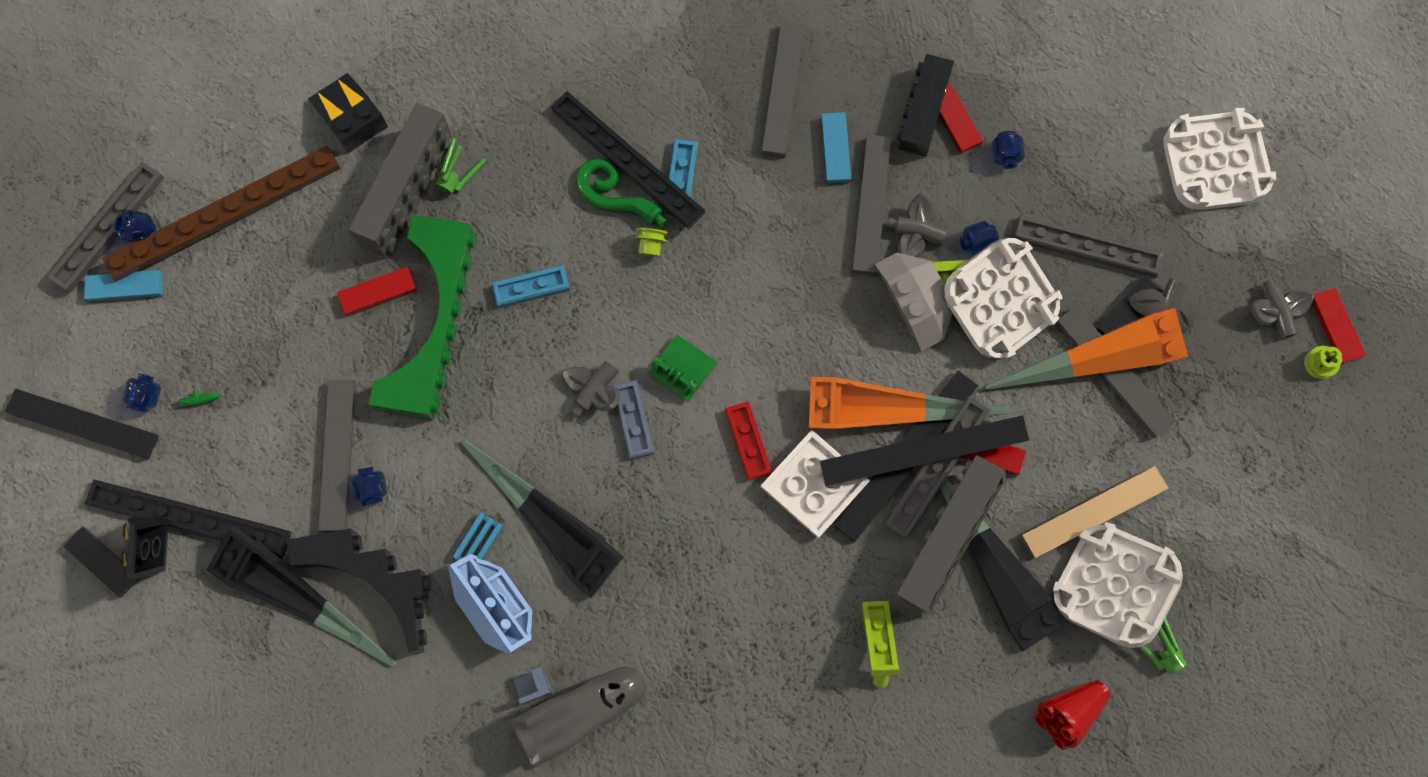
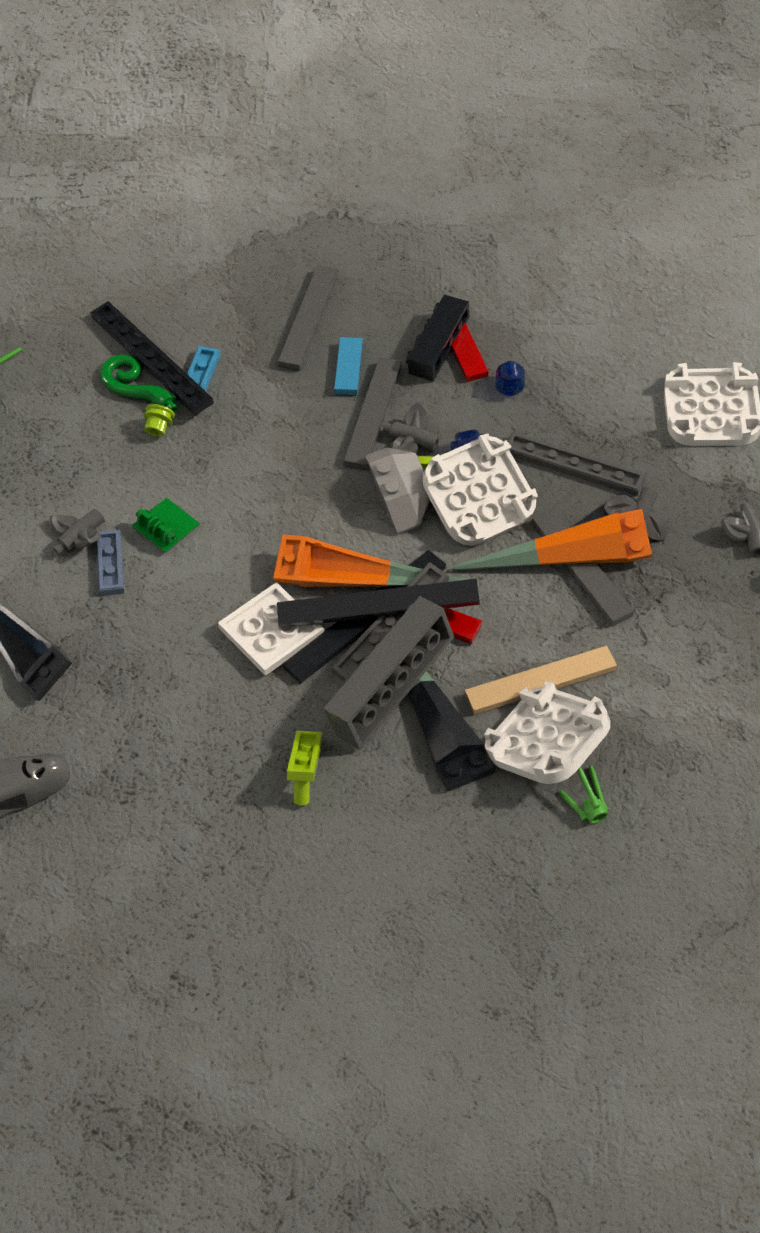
camera: 10 degrees right, 20 degrees down
(530, 286) = (39, 449): dark azure tile -> none
(748, 441) = (215, 589): red tile -> none
(1072, 713) = (483, 839): red cone -> none

